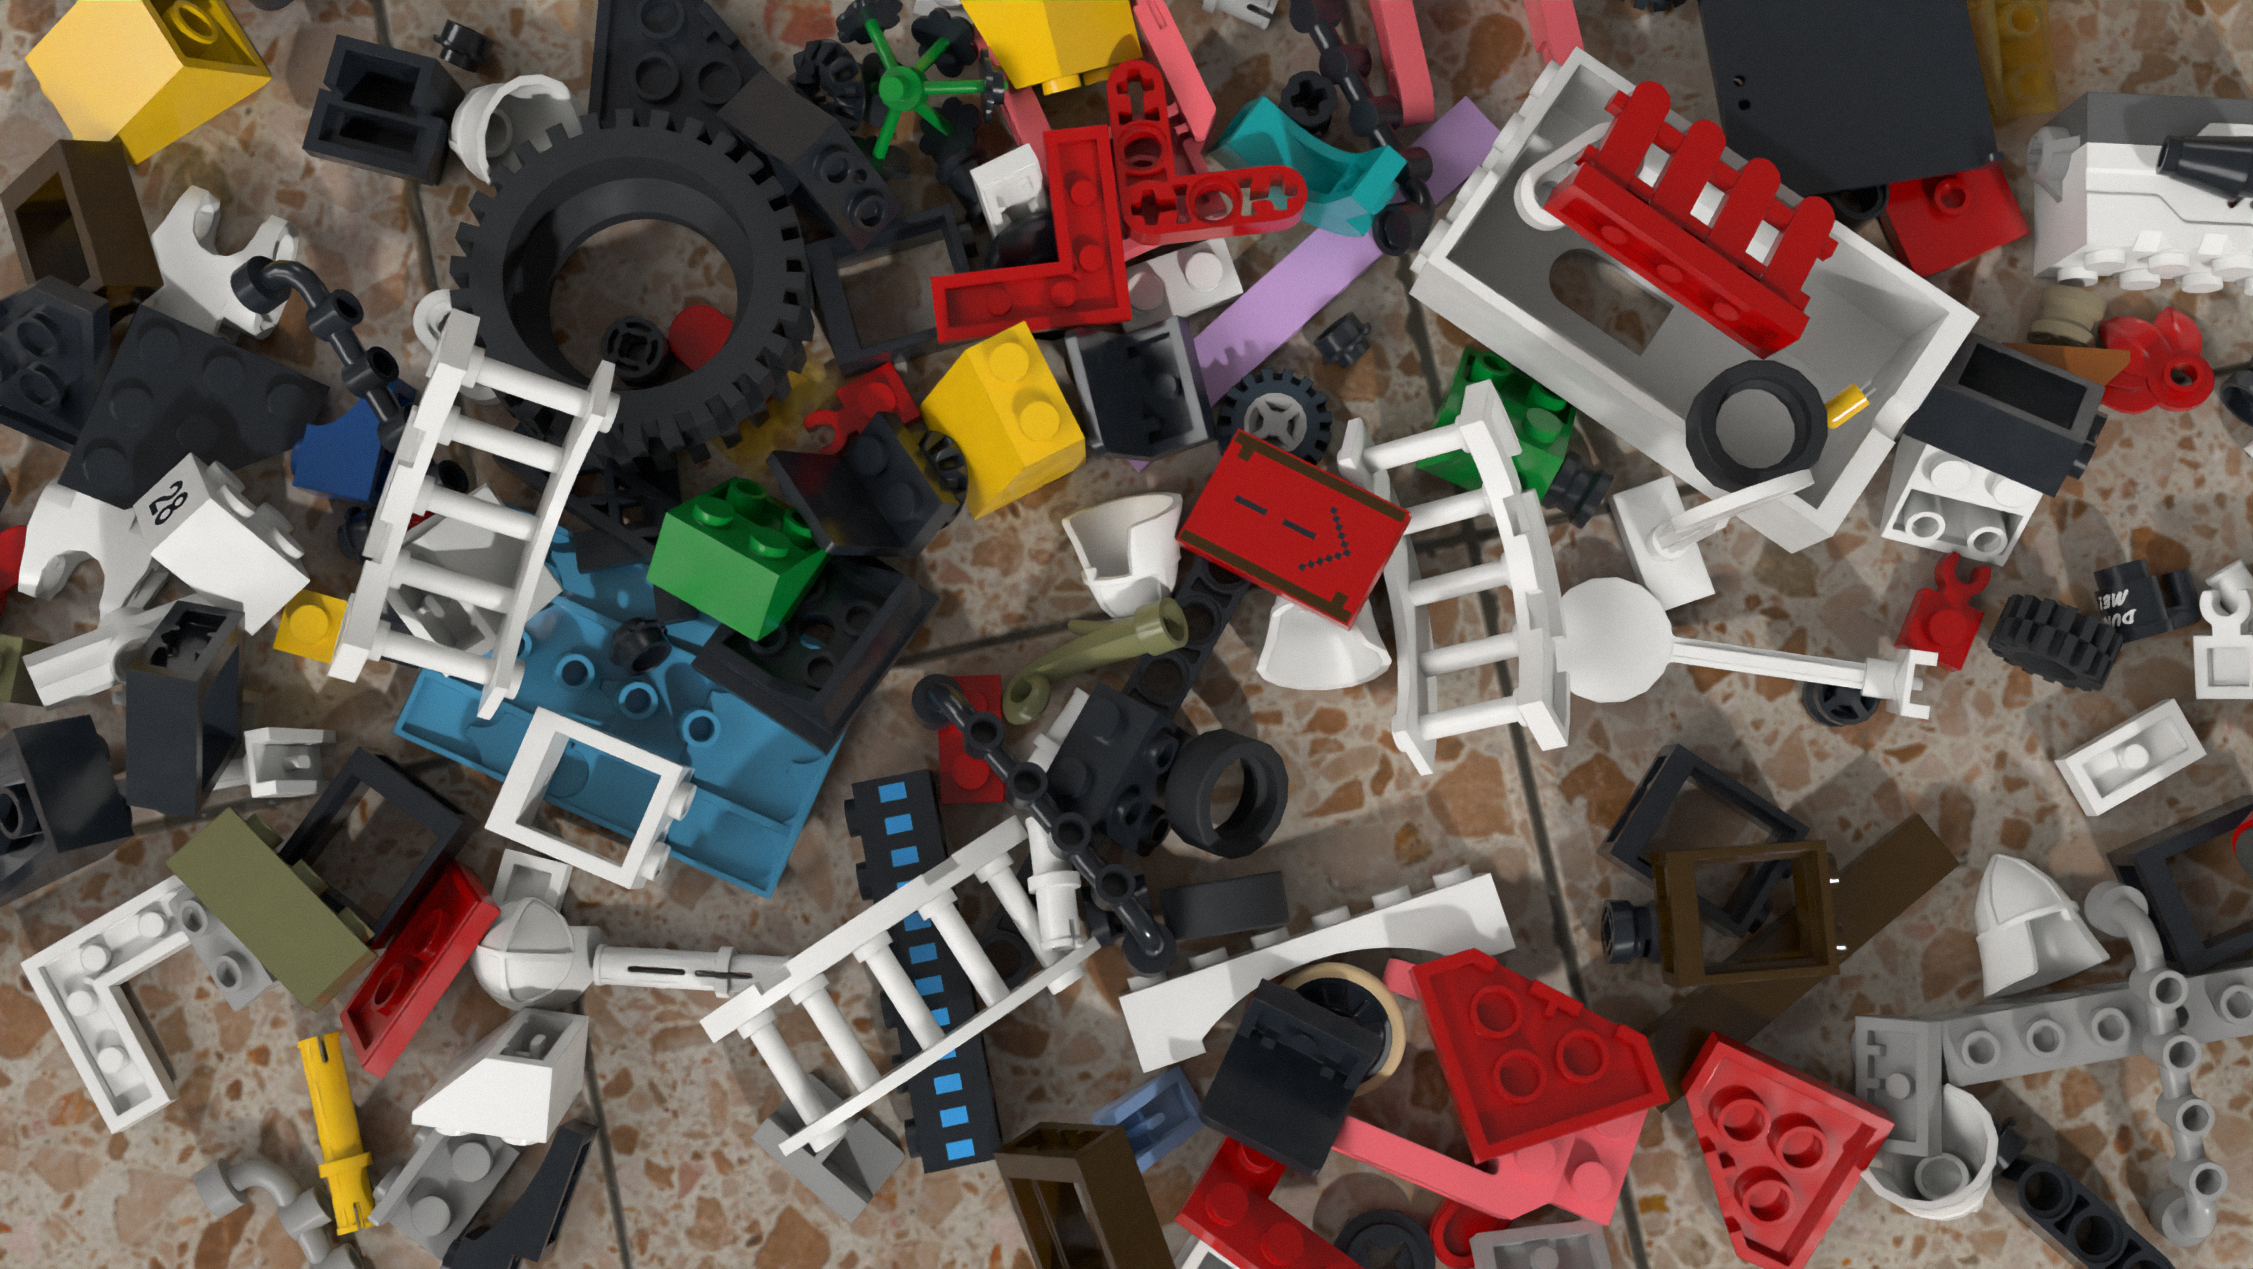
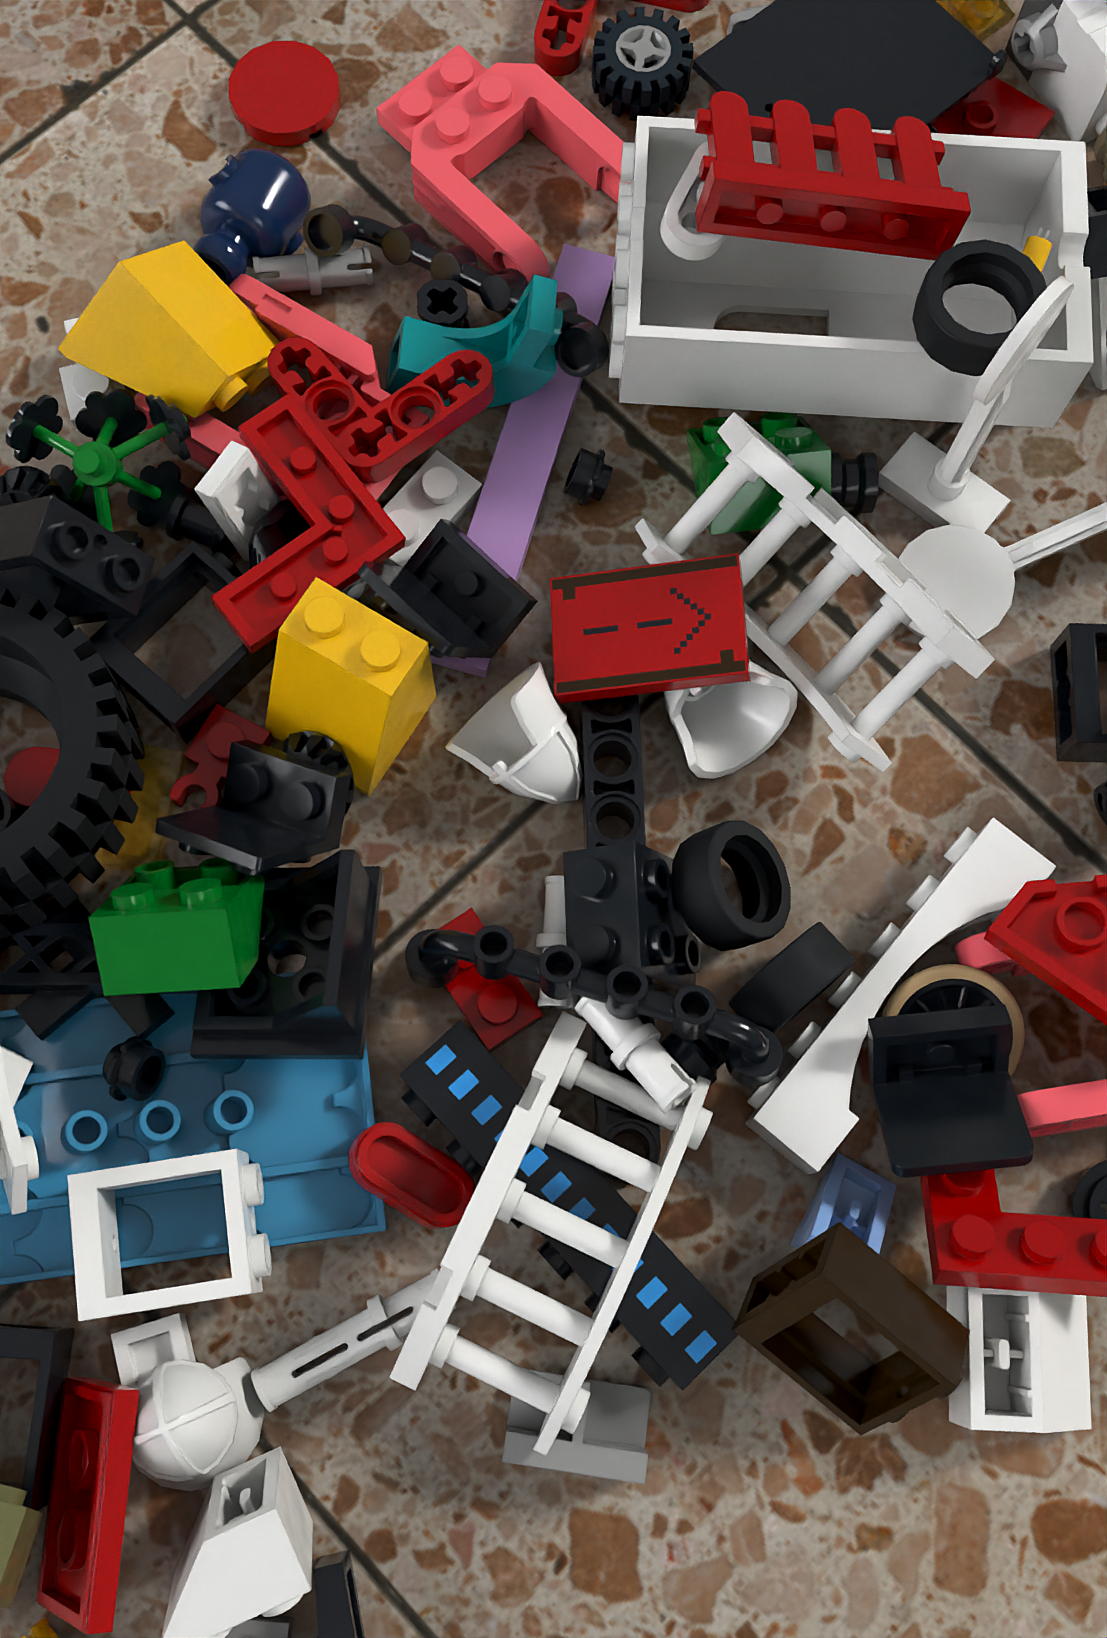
camera: 30 degrees left, 10 degrees down
(815, 868) = (410, 1175): none -> red tile
(1151, 630) = (583, 779): olive plant -> none
(1289, 413) = (565, 553): black wheel -> none

